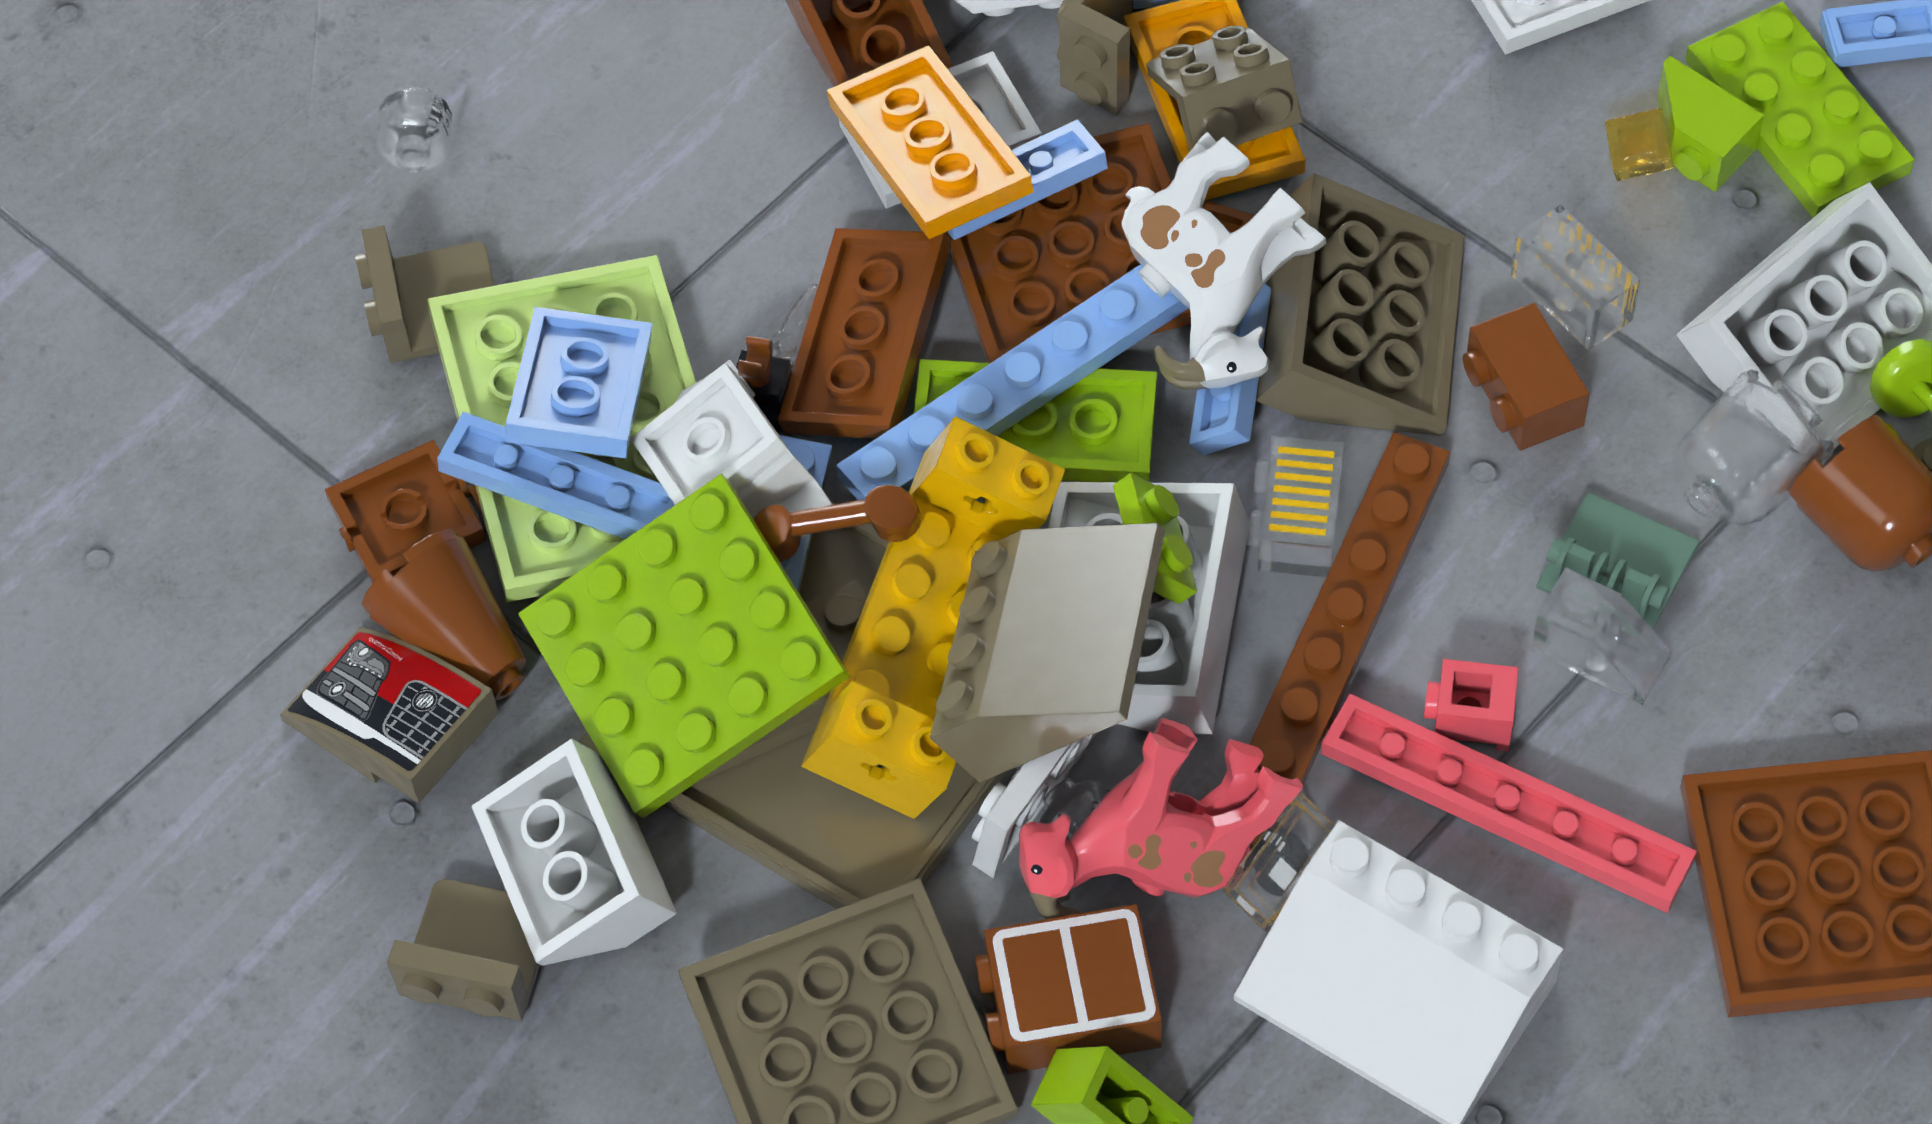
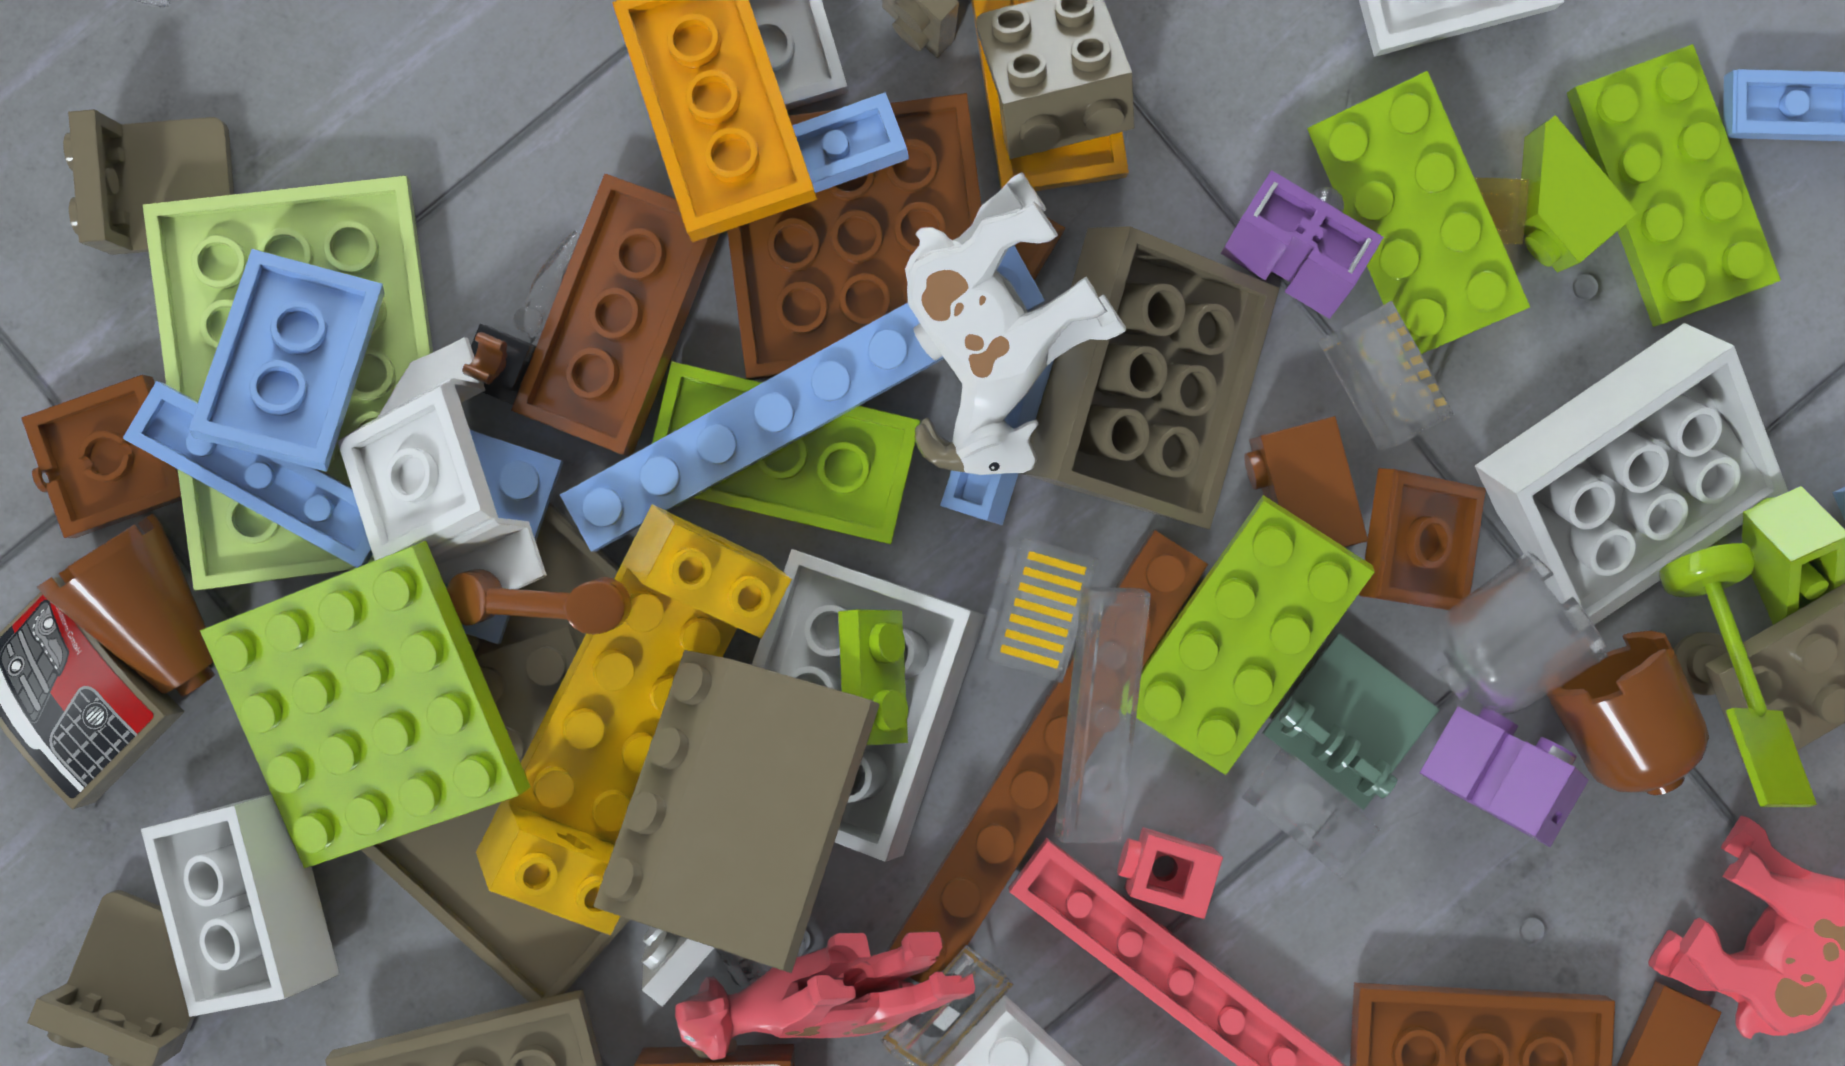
camera: 10 degrees right, 30 degrees up
(1377, 576) = (1102, 714): none -> clear tile
(1472, 184) = (1303, 241): none -> medium lavender piece
(1495, 492) = (1247, 634): none -> lime plate
(1573, 152) = (1414, 187): none -> lime plate
(1639, 393) = (1422, 539): none -> dark orange tile
(1766, 563) = (1505, 776): none -> medium lavender piece

